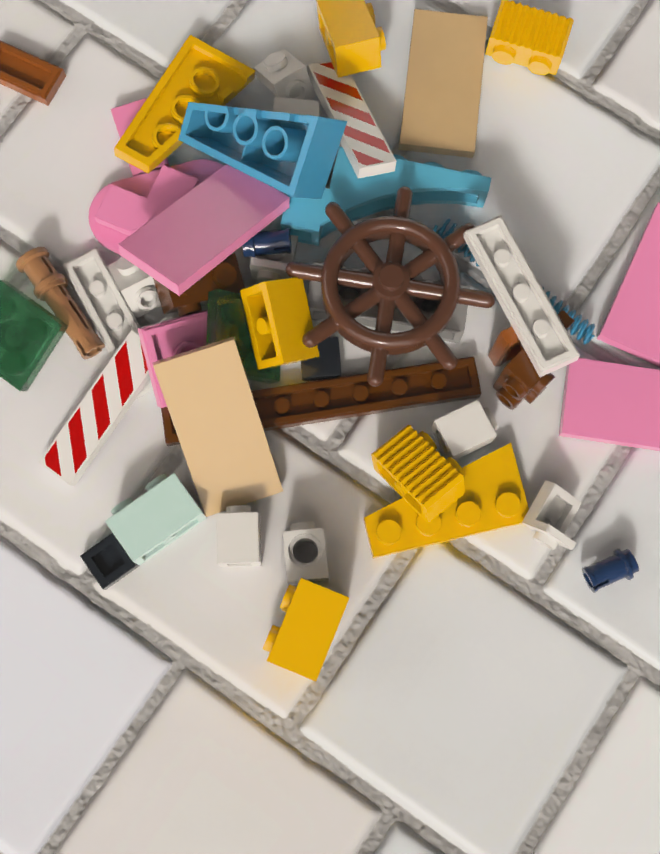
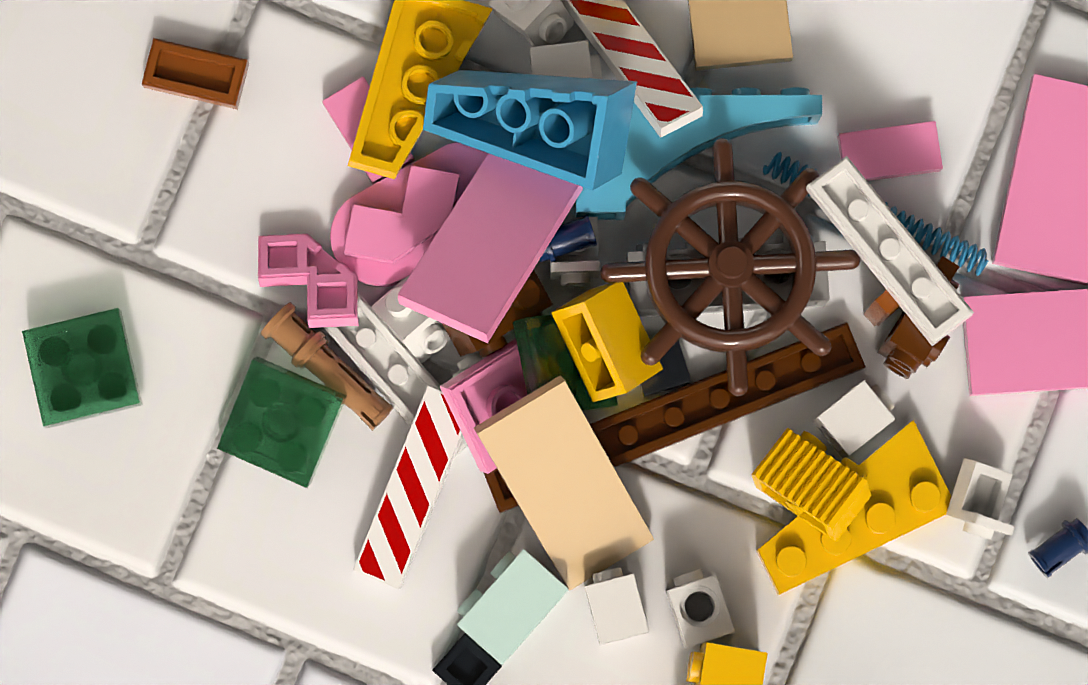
camera: 10 degrees left, 5 degrees up
(77, 242) = (302, 261): none -> bright pink tile
(543, 237) = (893, 150): none -> bright pink tile

